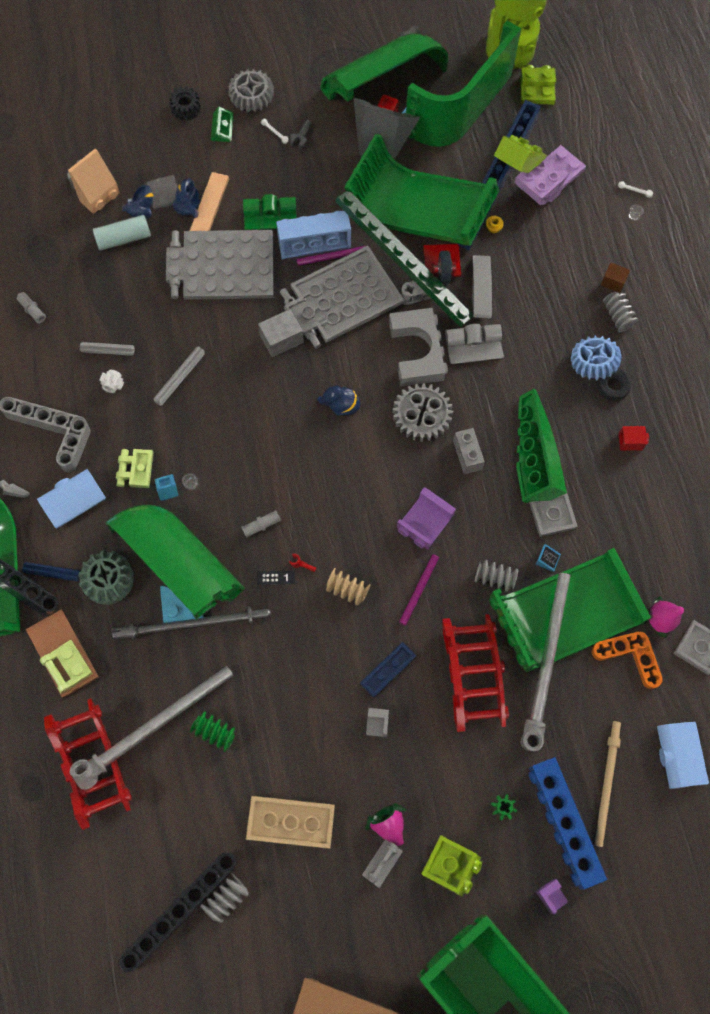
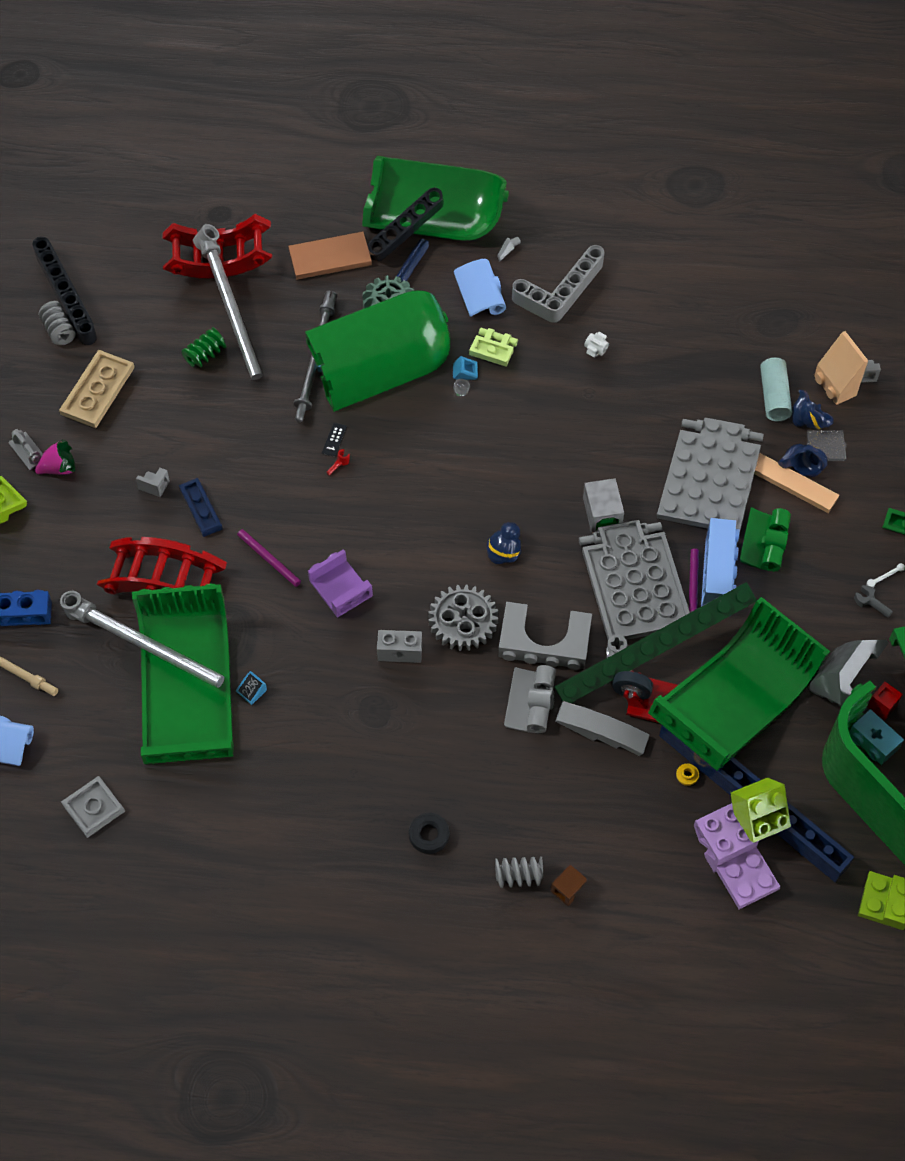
camera: 110 degrees right, 10 degrees down
(31, 307) = (707, 296): light grey axle -> none
(72, 663) = (314, 257): yellowish green plate -> none
(102, 348) = (638, 351): light grey axle -> none
(179, 376) = (586, 407): light grey axle -> none
(261, 523) = (393, 437): light grey pin -> none
(347, 587) = (294, 488): tan piece -> none
(496, 575) = (250, 625): light grey piece -> none
(502, 813) = (25, 560): green gear -> none
(539, 461) = (357, 713): green wedge -> none
(553, 515) = (298, 712): light grey tile -> none
(595, 354) = (464, 825): light blue gear -> none
(633, 438) = (352, 824): red brick -> none
(636, 212) = (661, 952): clear hinge -> none
(637, 651) = (116, 740): orange beam -> none
(649, 193) = (684, 983): white hinge -> none
(665, 616) = (139, 778): dark pink hat -> none

